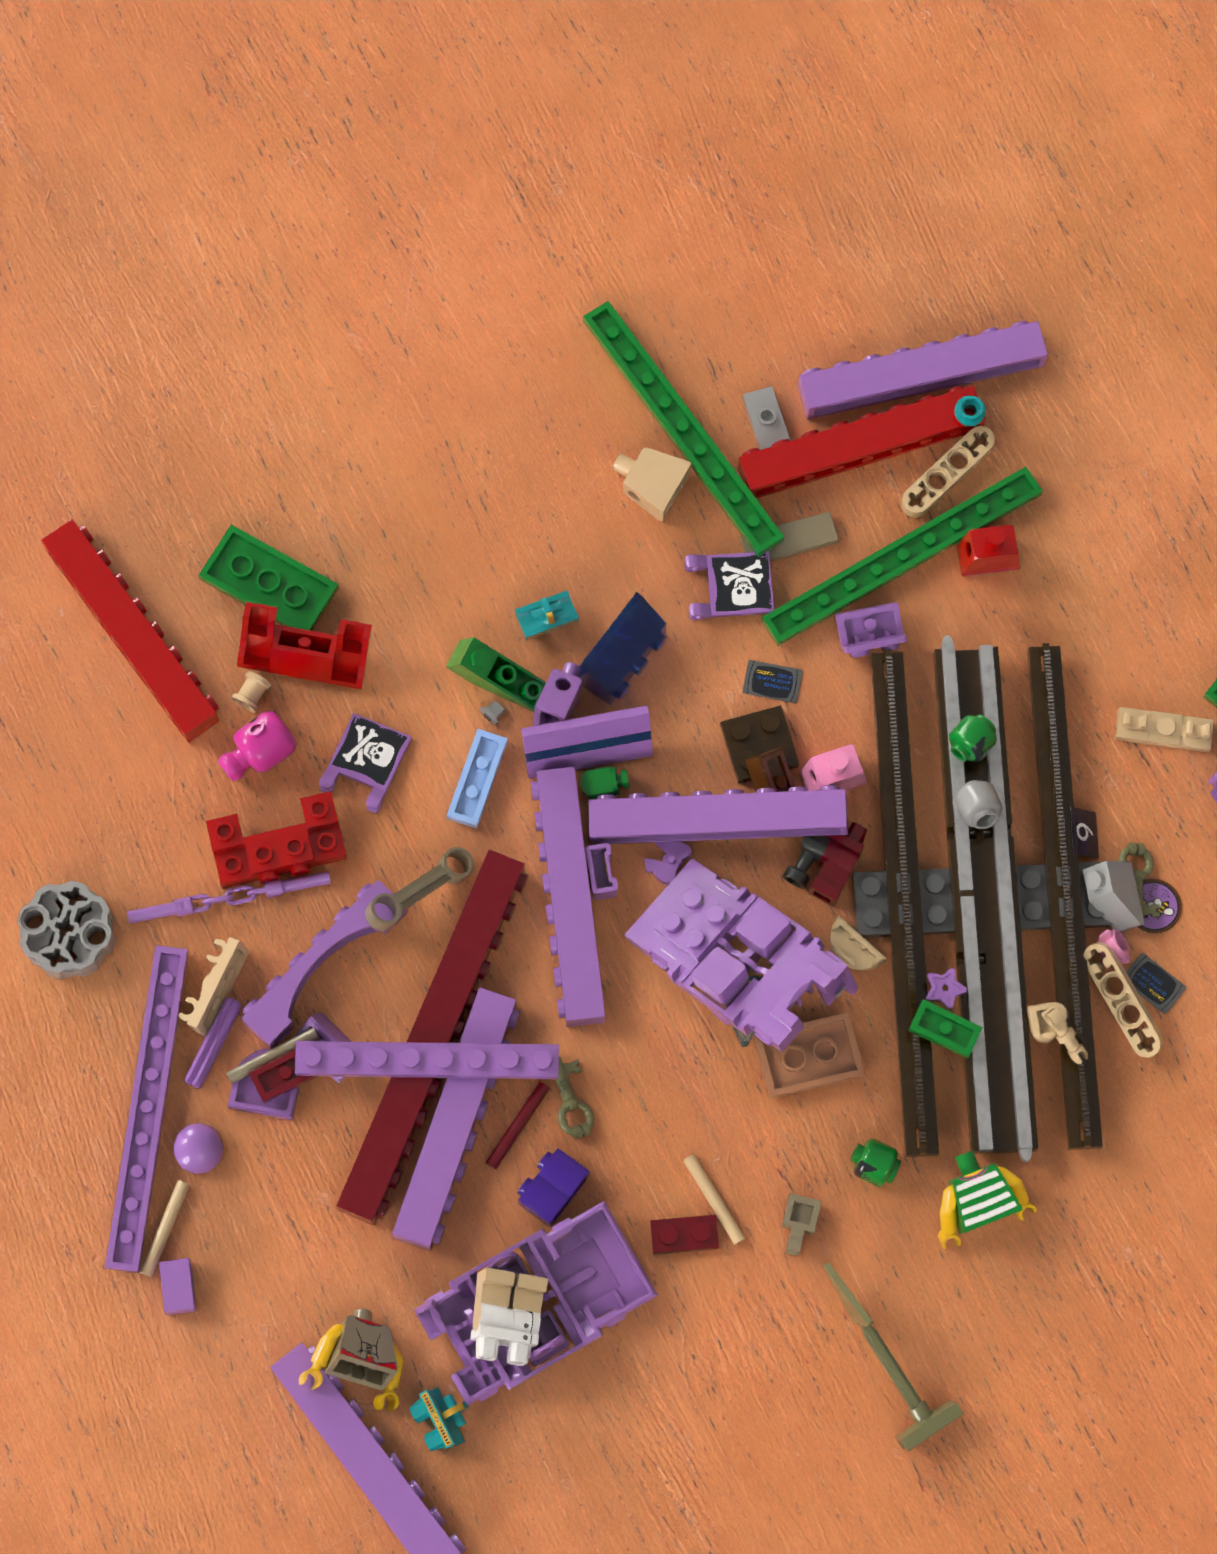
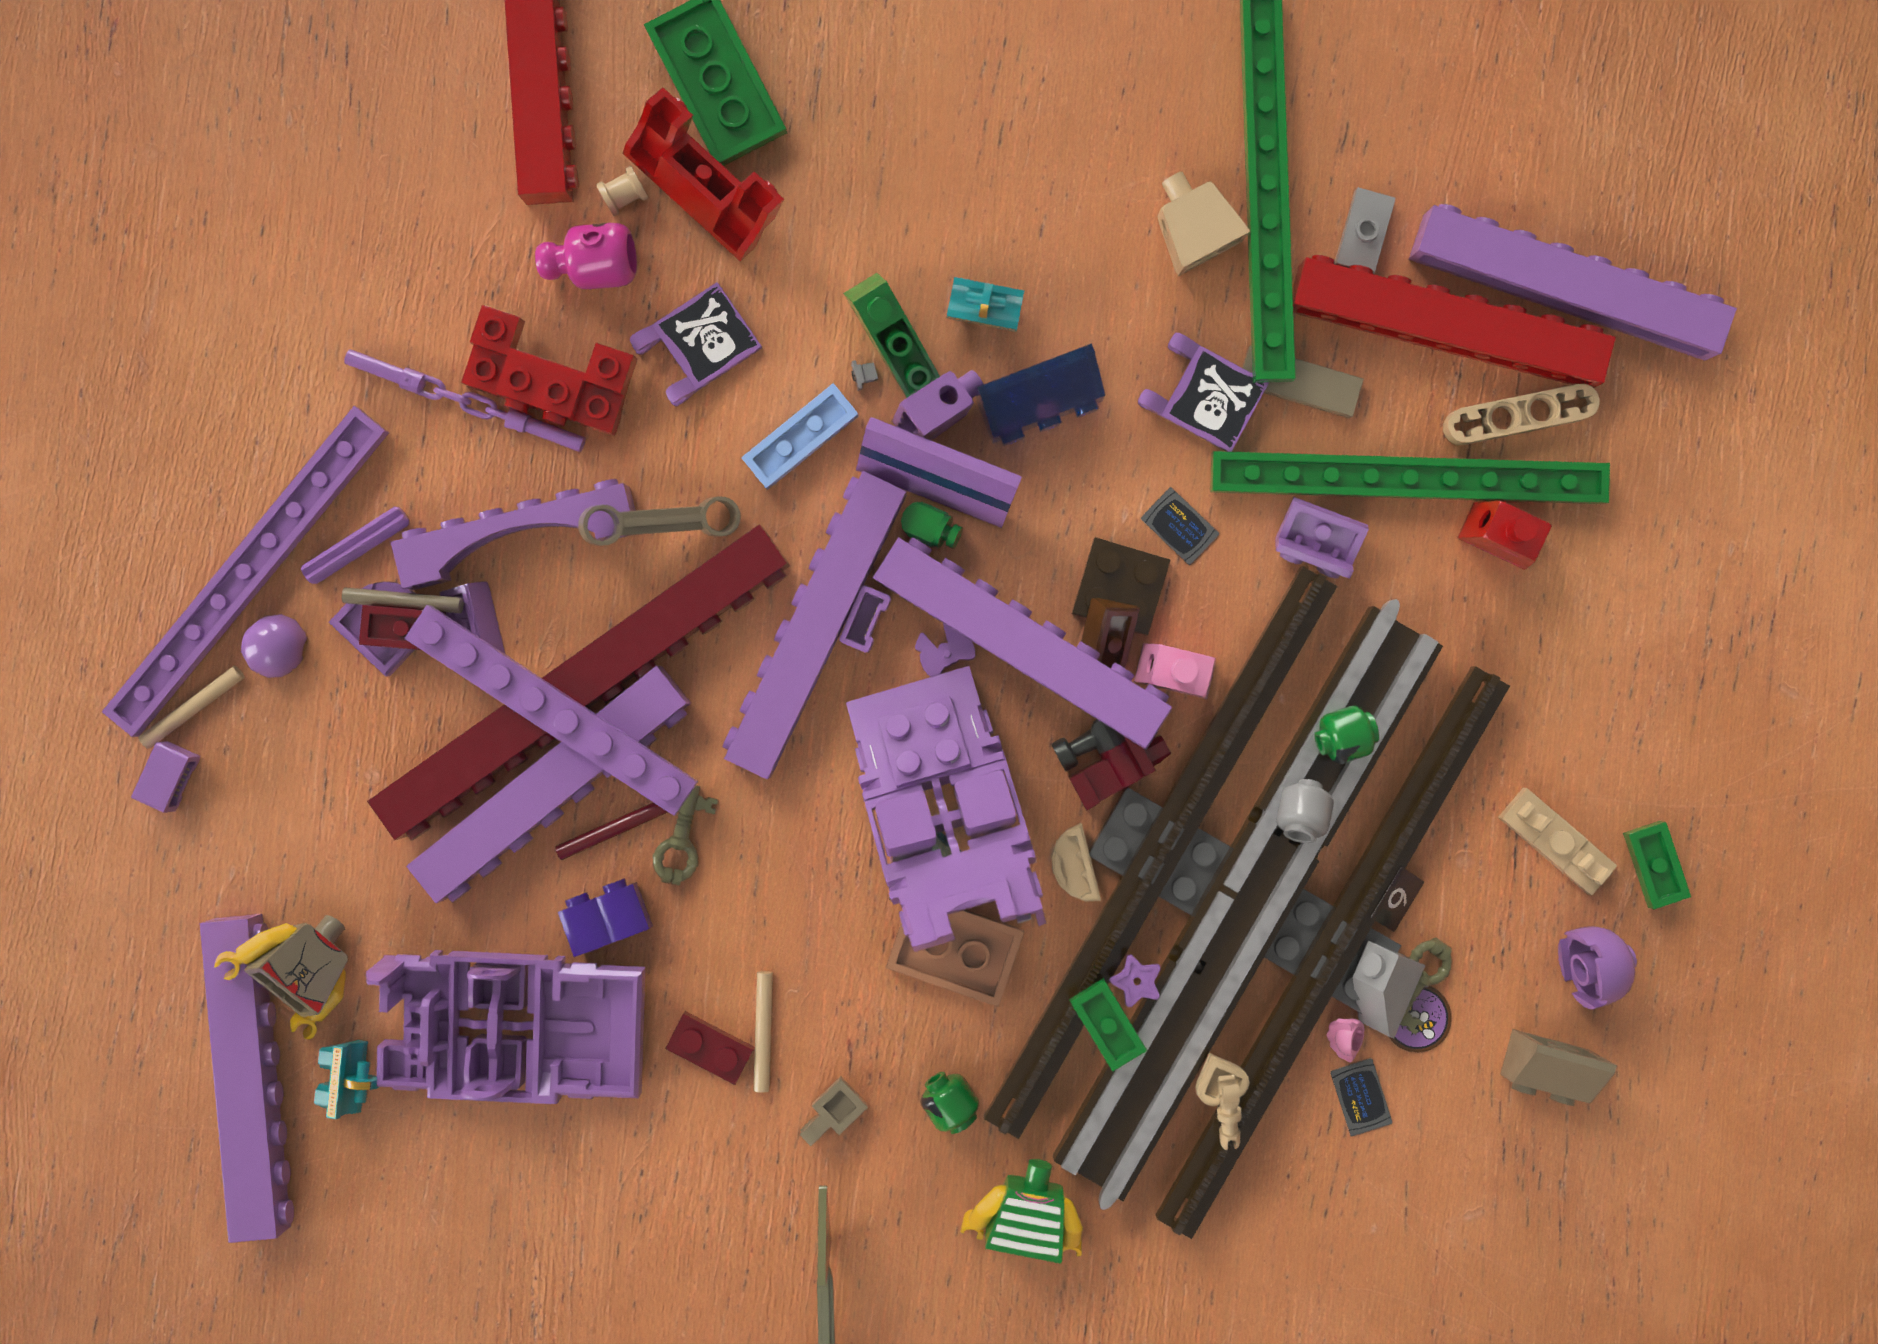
camera: 35 degrees right, 15 degrees up
(95, 919) = (273, 304): light grey connector -> none
(216, 985) = (391, 488): tan plate -> none
(507, 1314) = (459, 1035): hips -> none
(973, 403) = (1602, 359): teal plate -> none
(1118, 1002) = (1322, 1101): tan beam -> none

